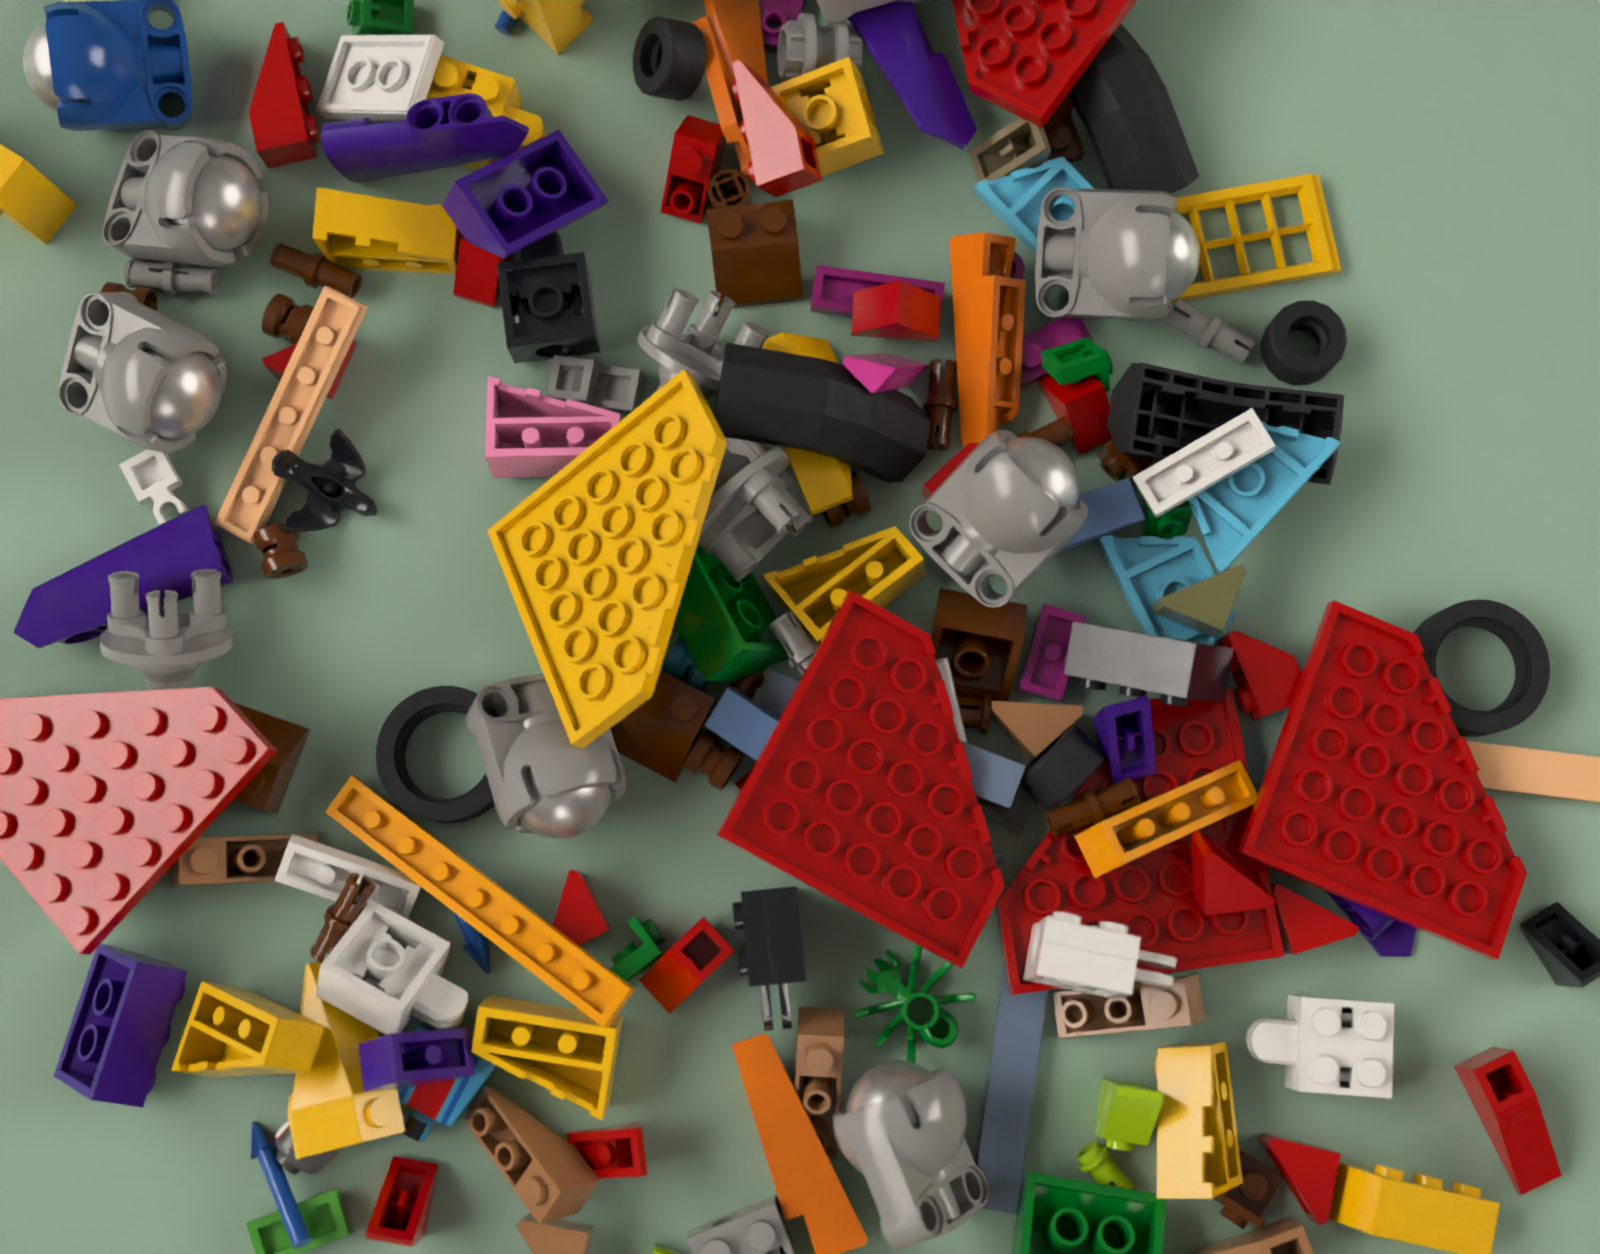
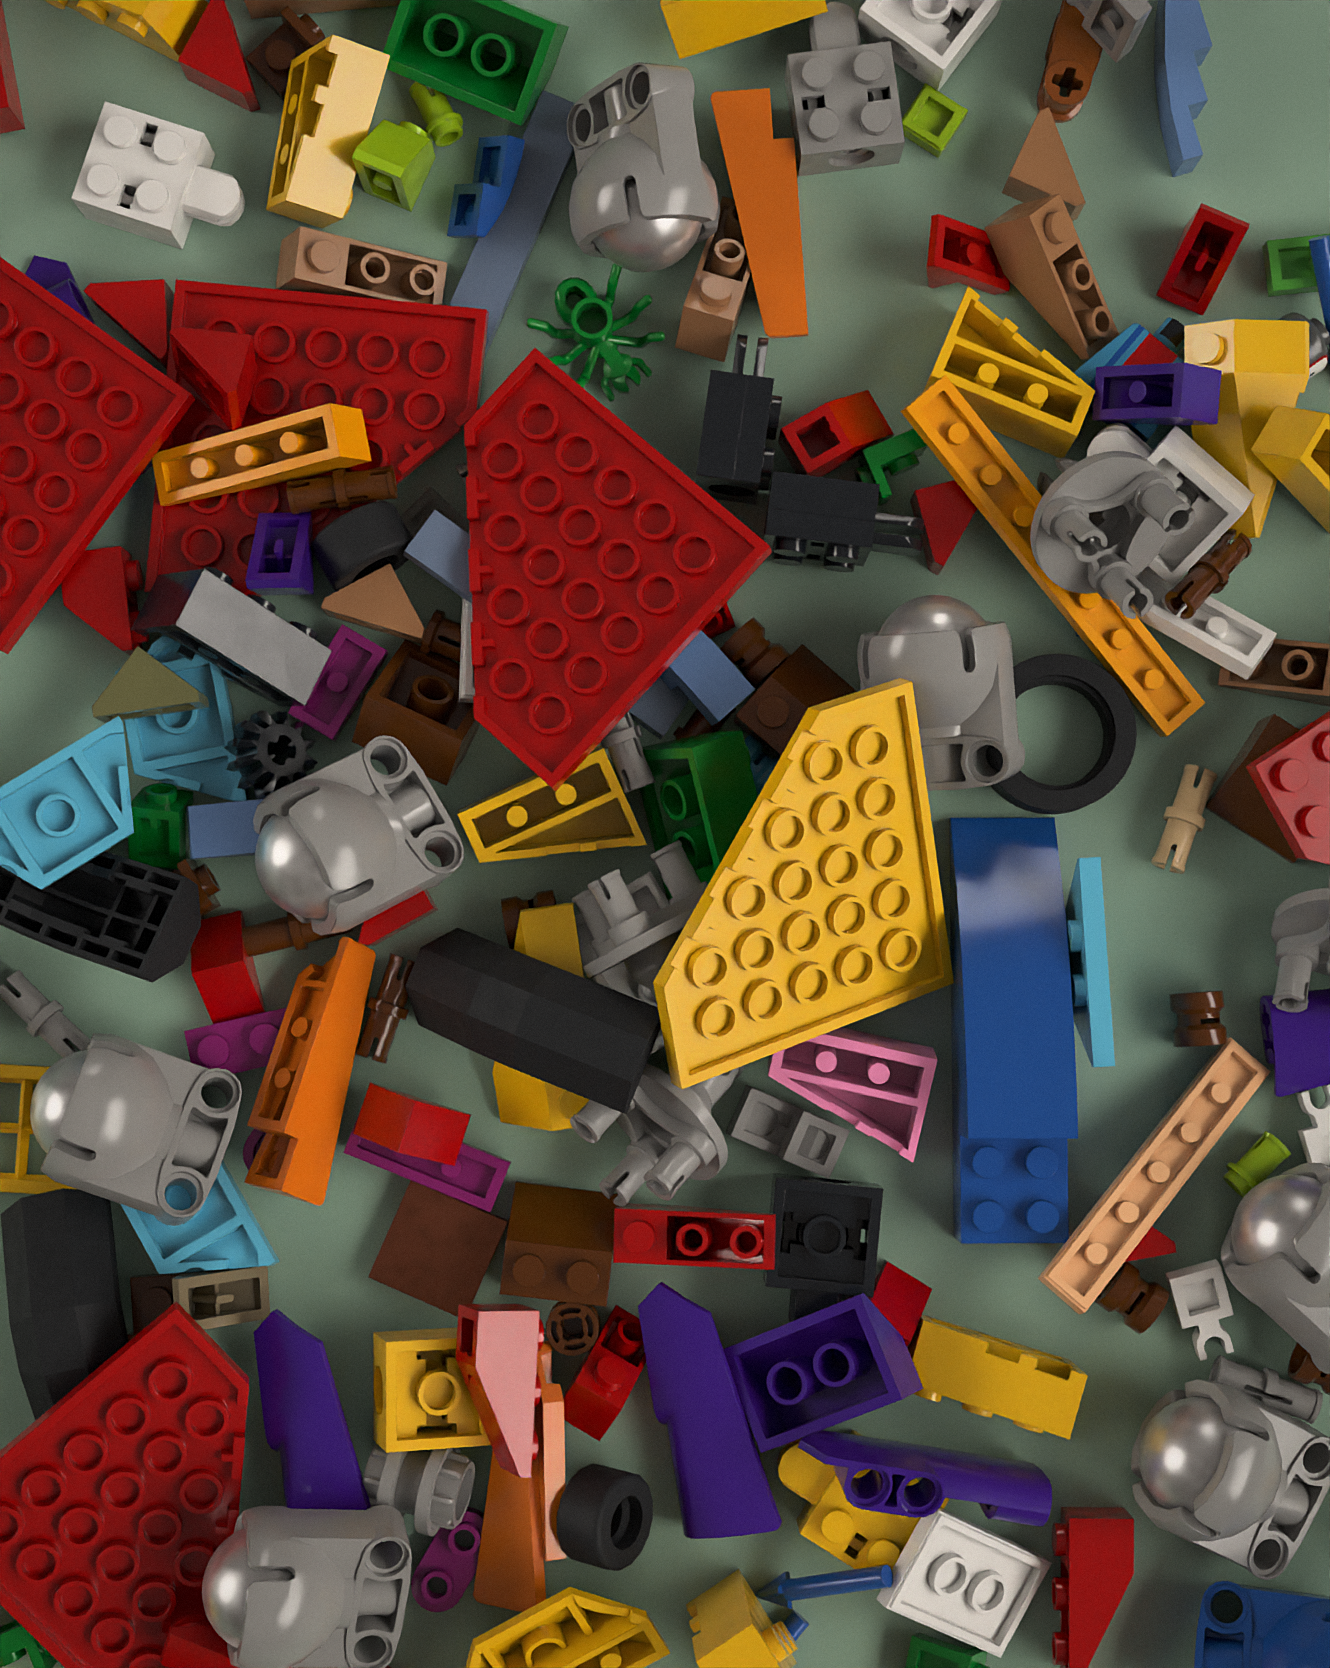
camera: 165 degrees left, 5 degrees up
(211, 447) = (1256, 1164): none -> lime pin
(235, 330) = (1200, 1301): none -> white plate
(315, 270) = (1091, 1355): reddish brown pin -> none
(323, 711) = (1184, 818): none -> tan pin
(328, 485) = (1131, 1083): black animal -> none
(377, 556) = (1090, 962): none -> medium azure wing
(432, 505) = (1010, 1032): none -> blue slope
(438, 928) = (1106, 525): none -> light grey piece
(517, 43) = (785, 1590): none -> blue piece
(599, 130) = (710, 1441): none -> dark purple panel
(648, 278) = (693, 1236): none -> red slope
(674, 882) = (833, 523): none -> black brick
(850, 229) = (438, 1248): none -> copper tile
(884, 371) = (445, 1052): dark pink slope -> none
(1042, 1095) = (480, 203): none -> blue slope
(1078, 360) = (213, 1012): green bracket -> none
(1089, 559) = (285, 746): none -> black gear
(1091, 958) = (392, 315): white brick -> none
(1204, 463) = (102, 842): white plate -> none

